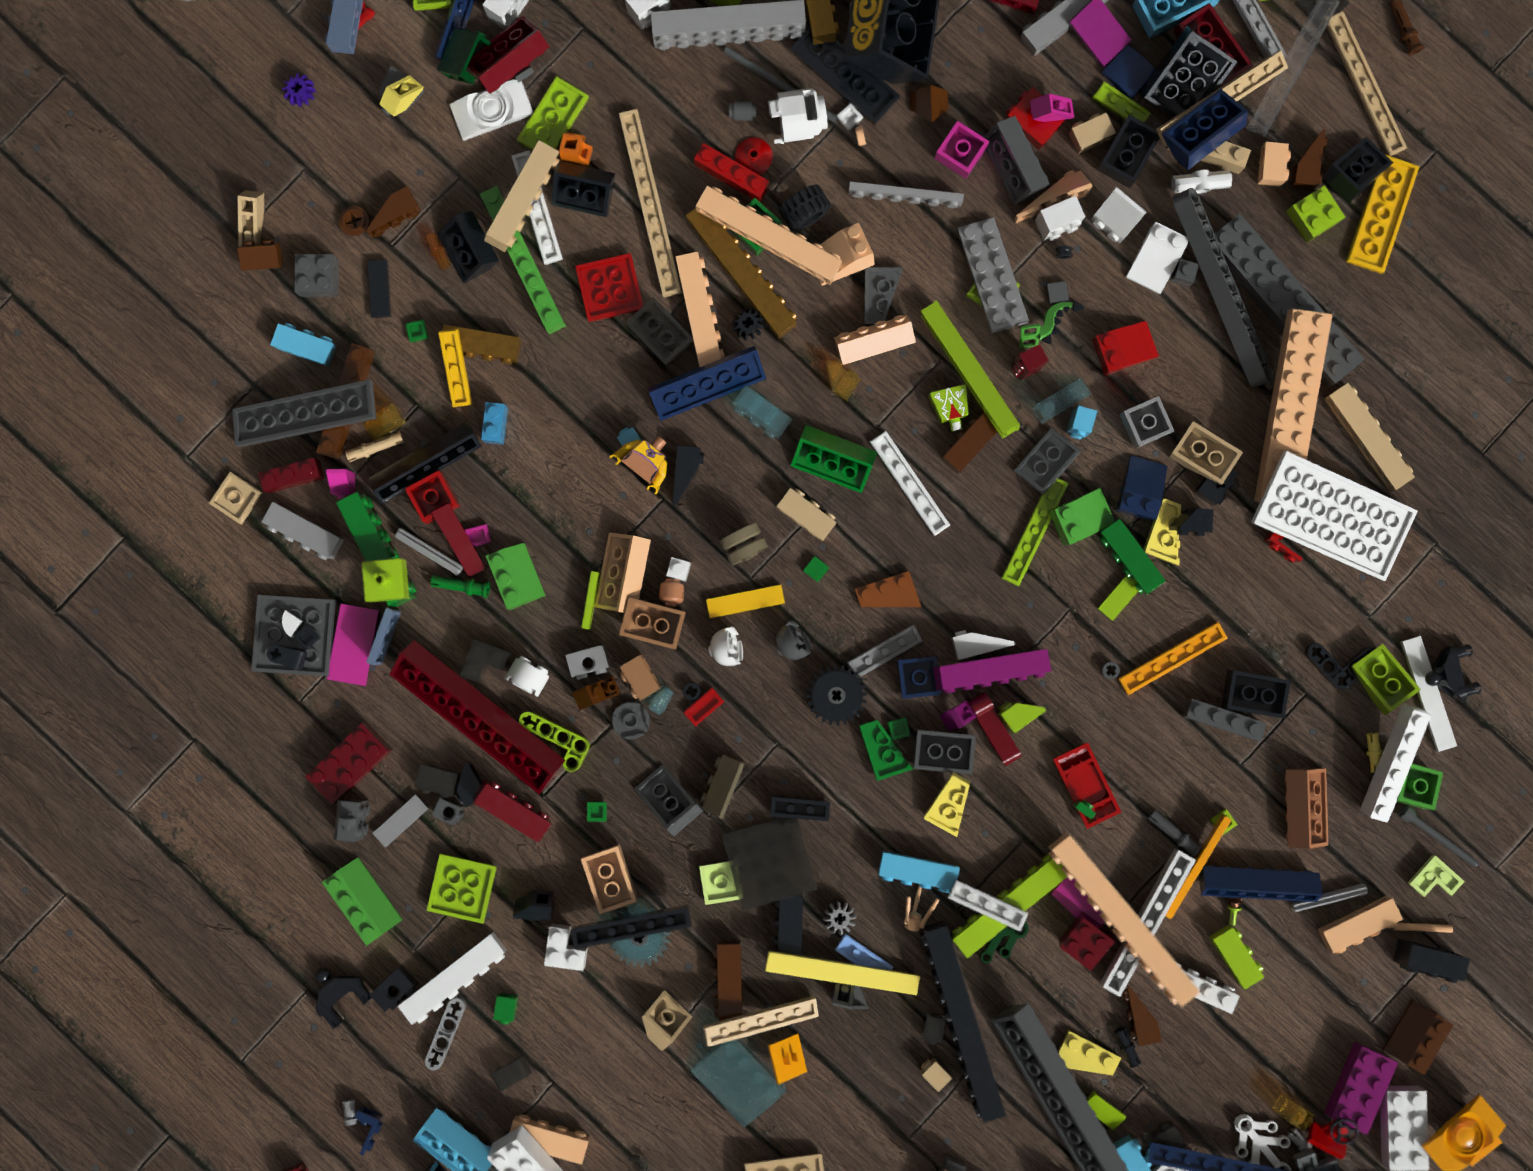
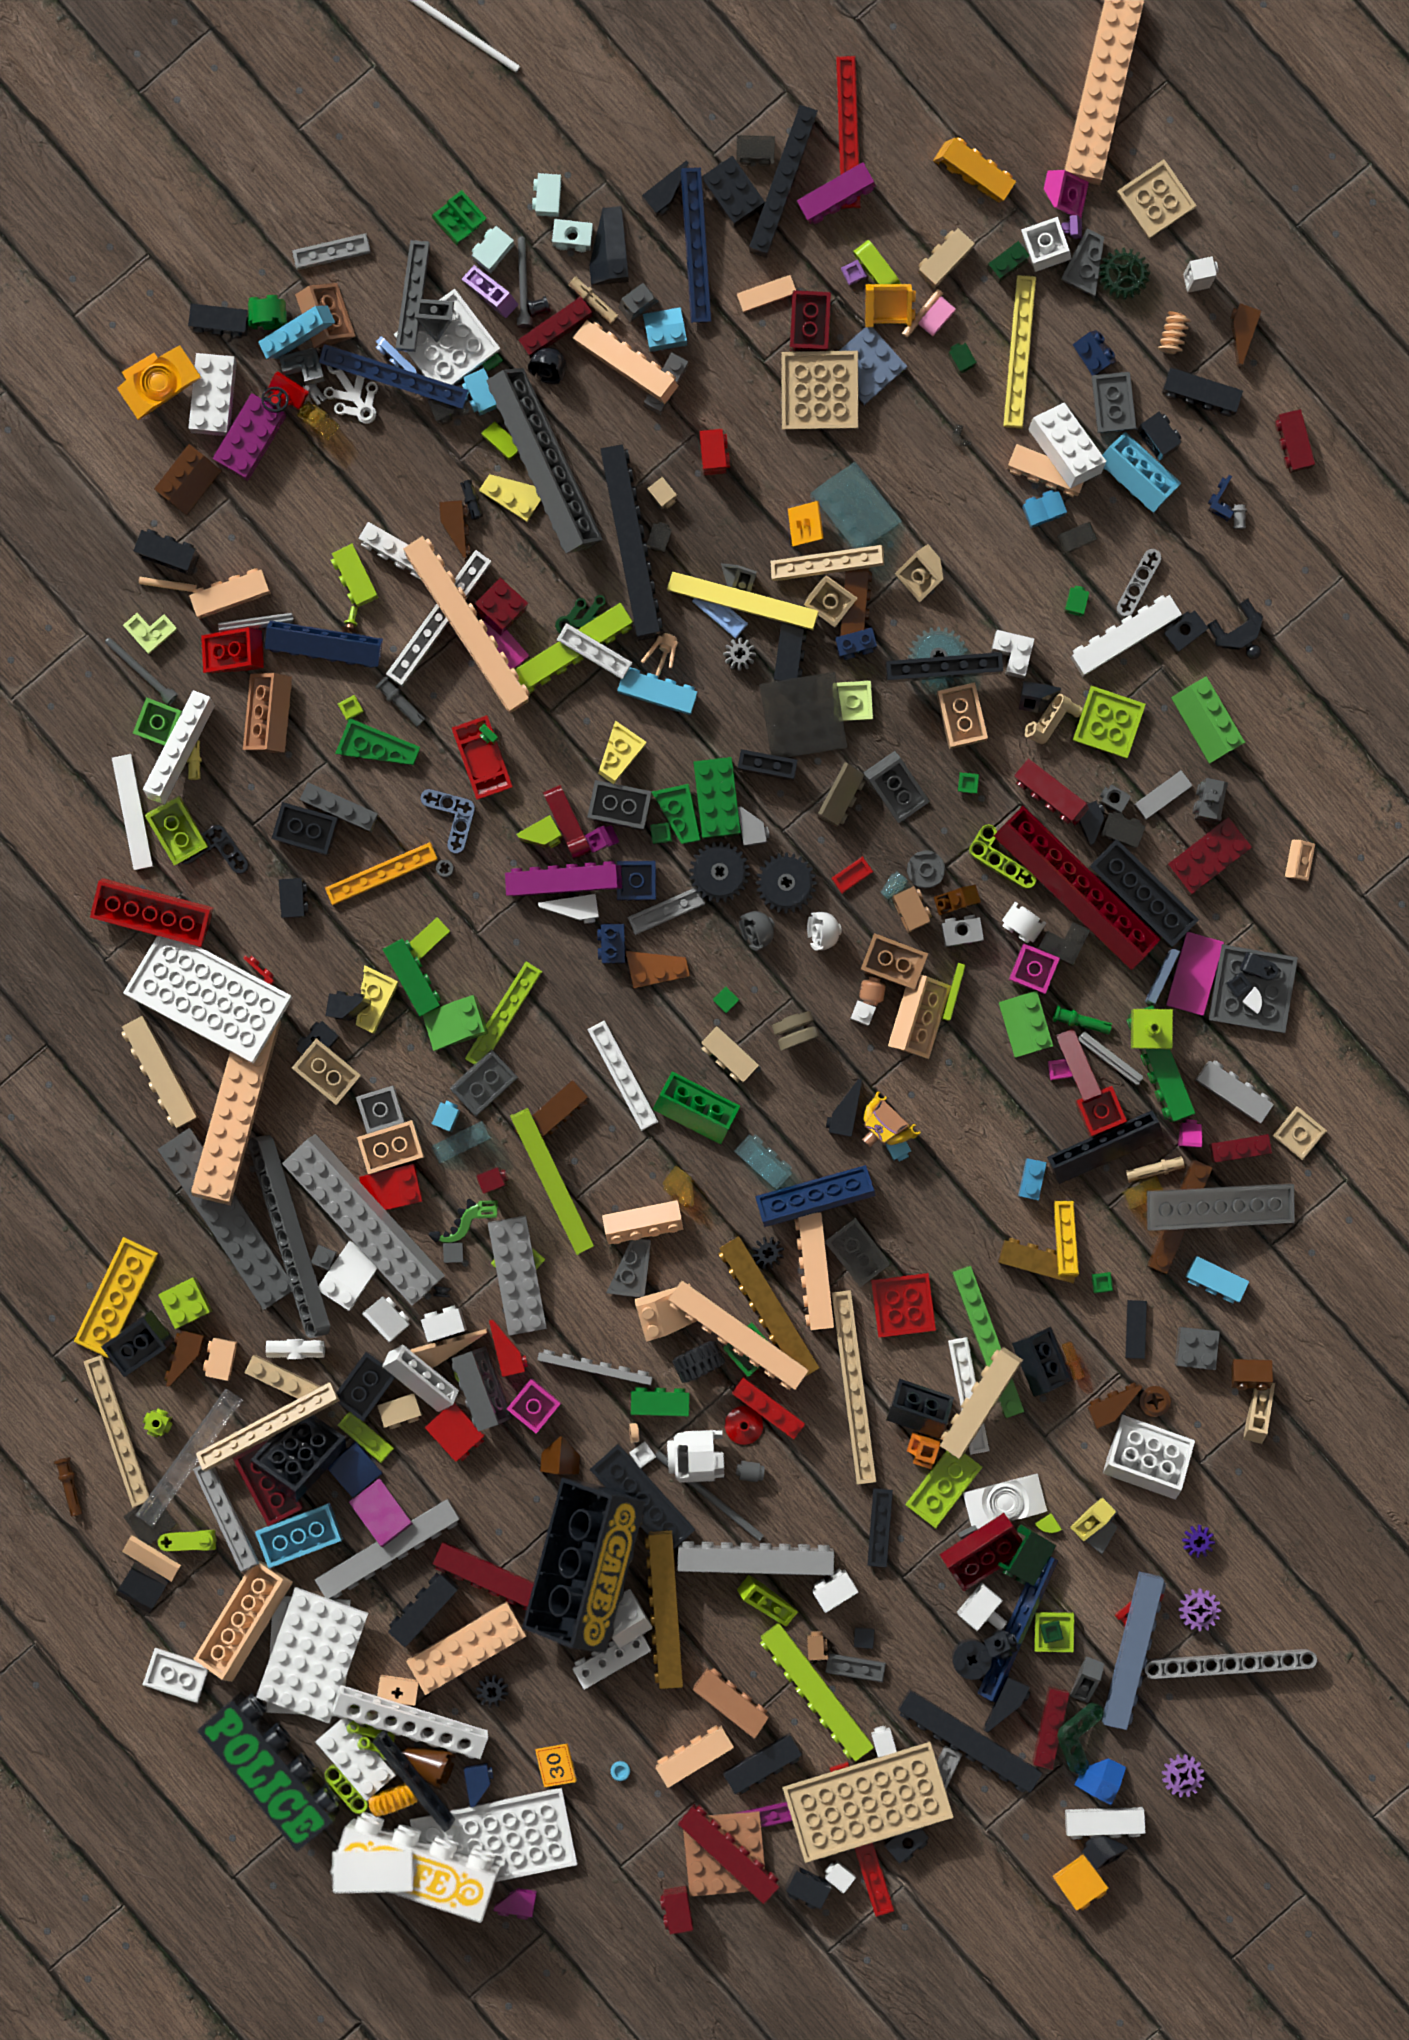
camera: 175 degrees left, 0 degrees up
(259, 769) = (1300, 860): none -> light nougat slope
(286, 19) = (1199, 1600): none -> medium lavender gear
(354, 165) = (1149, 1457): none -> white slope
(410, 718) = (1143, 893): none -> black brick
(447, 92) = (1048, 1524): none -> lime tile
(512, 631) = (1033, 969): none -> dark pink brick
(527, 872) = (1041, 731): none -> tan beam
(547, 1099) = (1044, 509): none -> dark azure brick
(610, 70) = (879, 1527): none -> black plate
(689, 695) = (858, 896): black bush -> none
(724, 941) = (856, 643): none -> dark blue bracket
(745, 601) = (799, 975): yellow tile -> none
(754, 982) = (830, 600): none -> tan slope
(762, 704) = (778, 894): none -> black gear
(808, 742) = (752, 828): none -> light grey slope
(838, 167) = (660, 1402): none -> green brick
(847, 769) = (716, 798): none -> green brick
(890, 1128) = (713, 452): none -> red brick
(935, 612) = (612, 943): none -> dark blue brick
(950, 405) = (573, 1148): lime torso -> none
(992, 199) = (508, 1354): none -> red slope
(1051, 108) = (439, 1435): dark pink slope -> none
(1077, 161) = (420, 1378): none -> white brick
(1101, 724) = (459, 816): none -> sand blue beam
(1132, 386) = (390, 1147): none -> light nougat brick
(1142, 488) = (391, 1046): dark blue slope -> none
(1151, 313) = (363, 1219): none -> light grey brick
(1197, 787) = (374, 744): none -> green wing
(1201, 858) = (383, 668): light orange tile -> none
(1205, 128) = (291, 1395): dark blue slope -> none
(1258, 624) = (293, 898): none -> black brick
(1328, 95) = (162, 1417): none -> lime brick
(1349, 867) = (232, 651): none -> red slope
(1399, 594) = (151, 912): none -> red slope
(1448, 673) = (111, 827): black connector -> none

